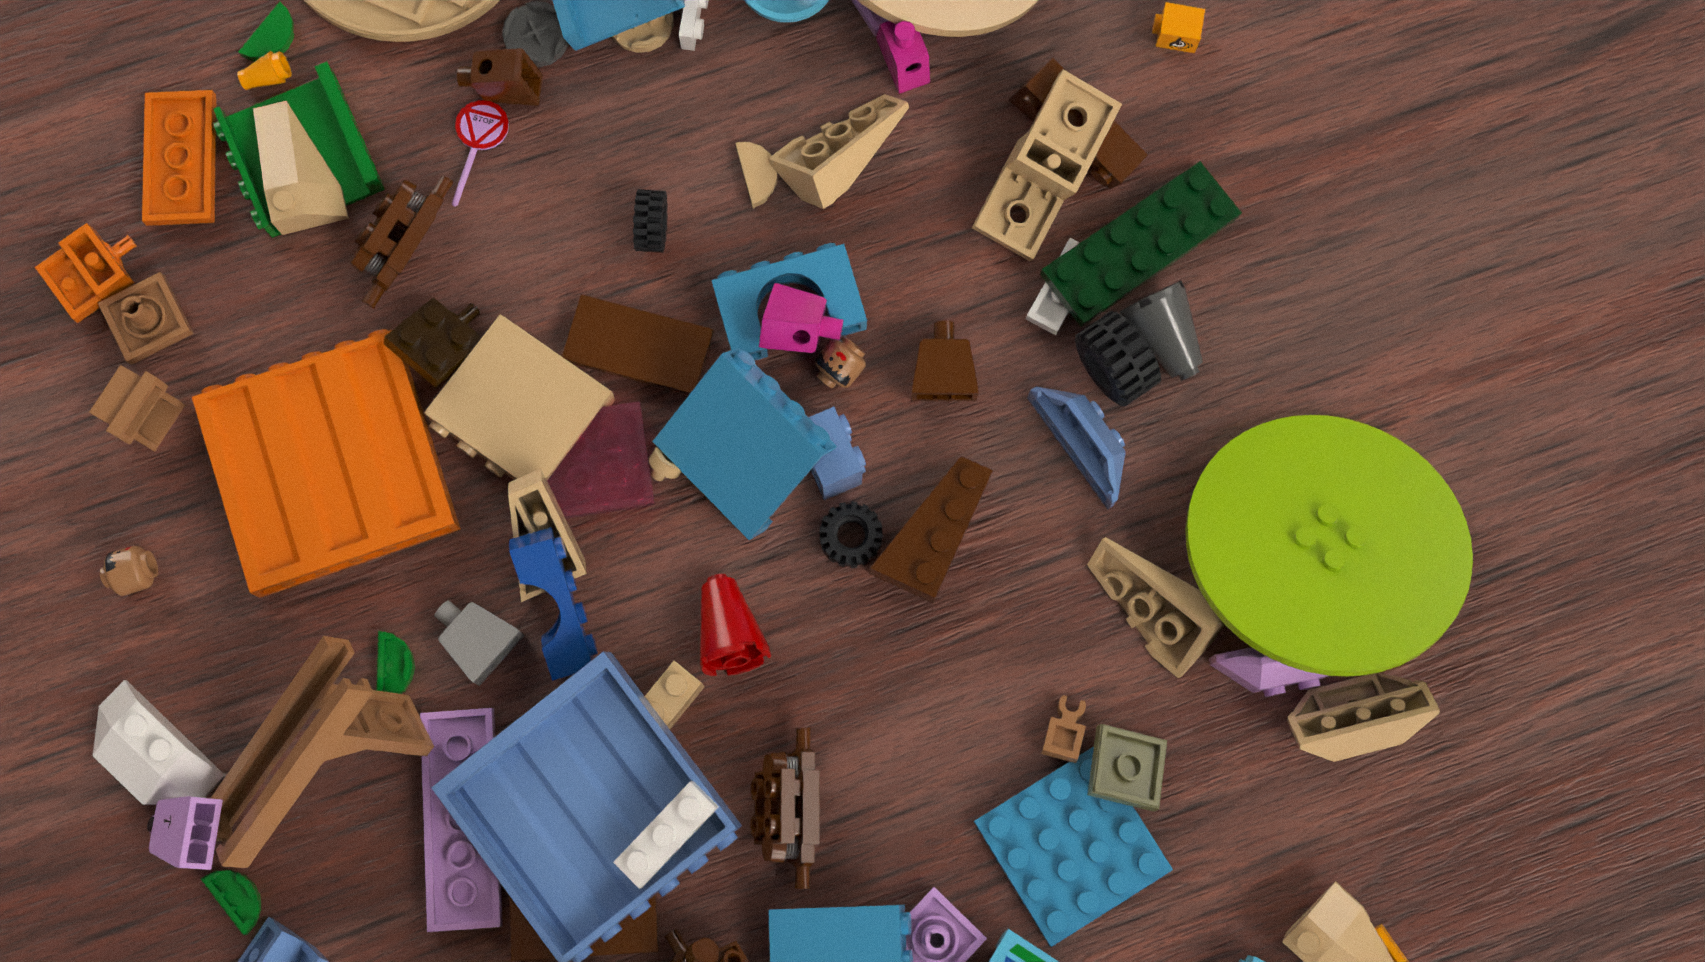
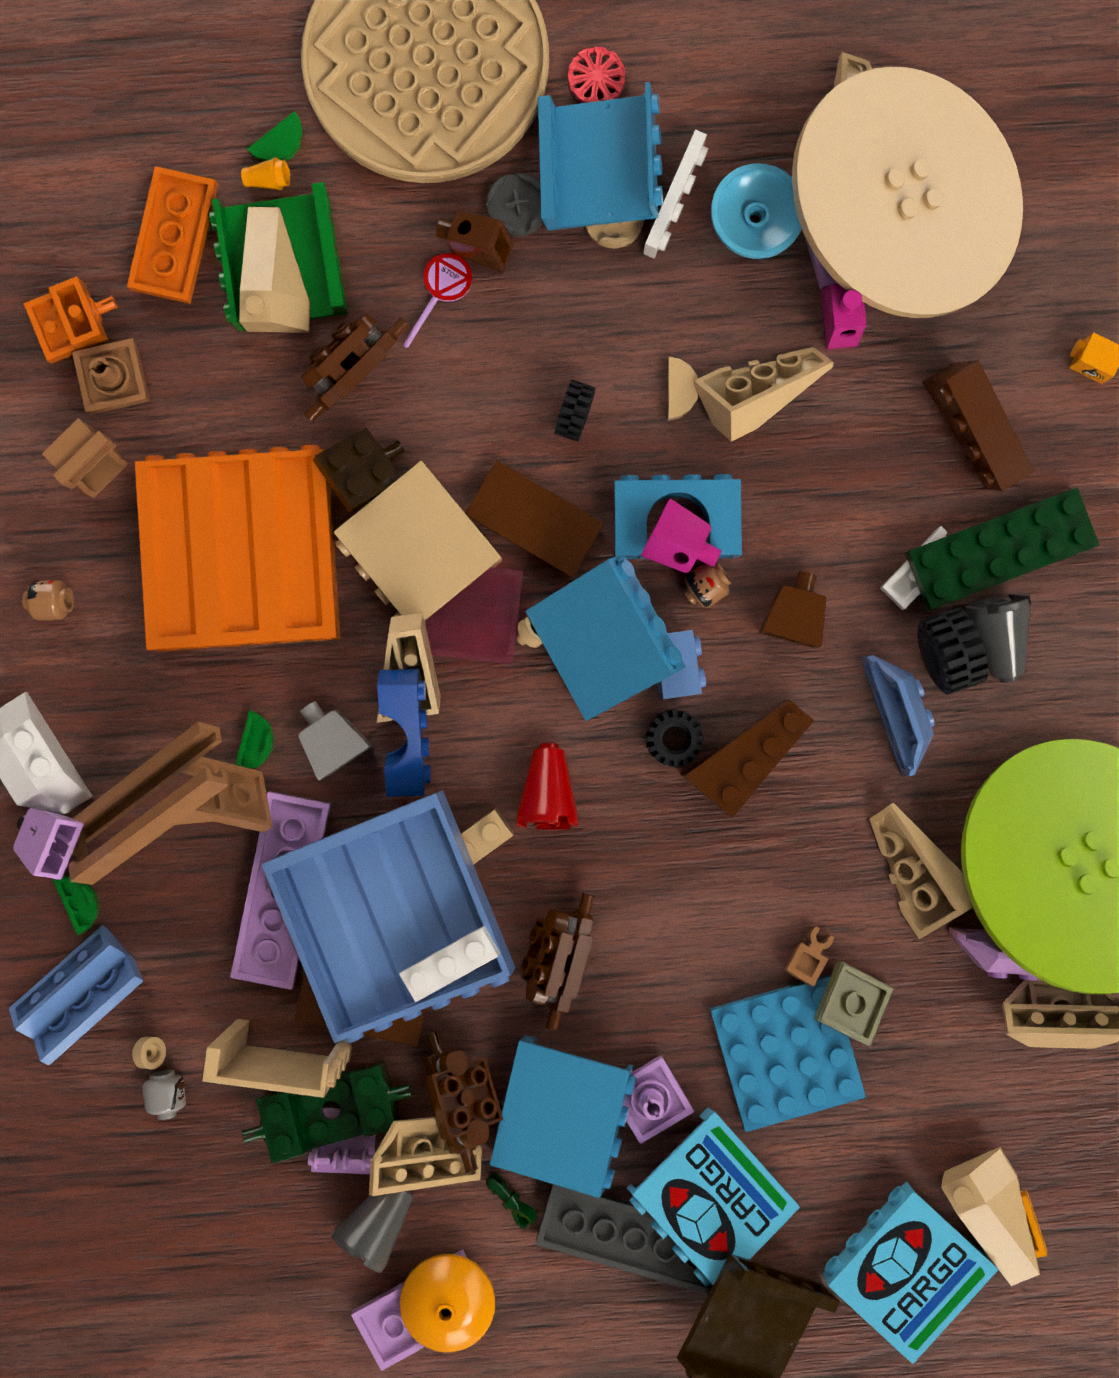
camera: 10 degrees right, 10 degrees up
(1047, 165) = (942, 457): tan bracket -> none

